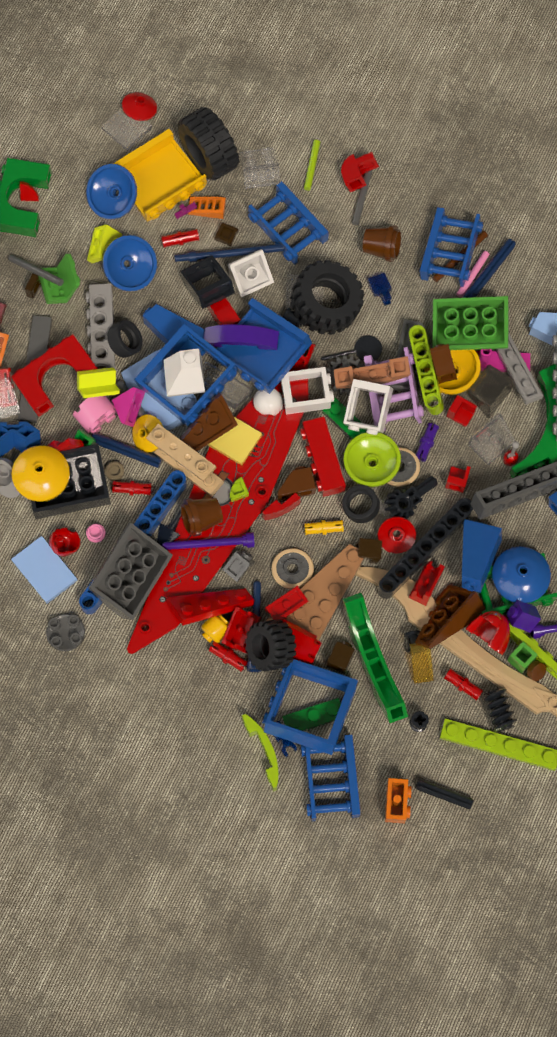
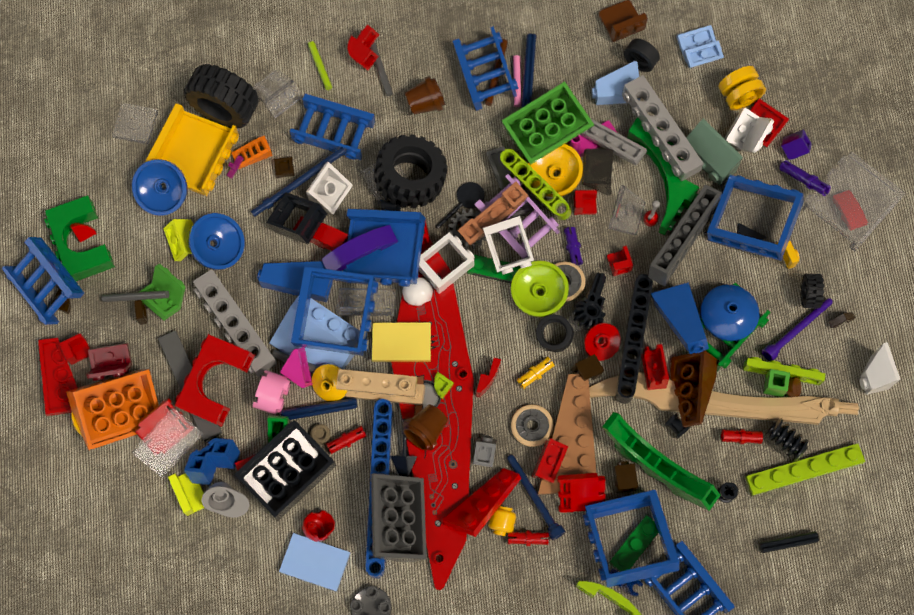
camera: 30 degrees left, 0 degrees up
(44, 484) = (264, 490): yellow dish -> none
(68, 444) = (259, 442): red slope -> none
(95, 533) = (340, 500): bright pink plate -> none
(97, 382) = (258, 365): neon yellow panel -> none
(134, 337) = (249, 317): black tyre -> none
(139, 106) = (135, 99): red dish -> none
(180, 238) = (246, 193): red pin -> none
(184, 373) = (333, 310): white slope -> none
(210, 424) = (382, 342): reddish brown wing -> none
(237, 629) = (525, 508): red hinge -> none
(246, 540) = (478, 424): dark purple piece -> none
(270, 645) = (557, 516): black tyre -> none
(298, 481) = (490, 345): reddish brown slope -> none
(323, 457) = (495, 311): red brick -> none
(380, 286) = (446, 135): clear blue plate -> none
(396, 800) = (756, 574): orange brick -> none
(421, 664) = (697, 441): clear yellow tile -> none
(443, 363) = (549, 169): reddish brown slope -> none
(492, 628) = (738, 373): red hair -> none
(523, 616) = (754, 346): dark purple brick -> none

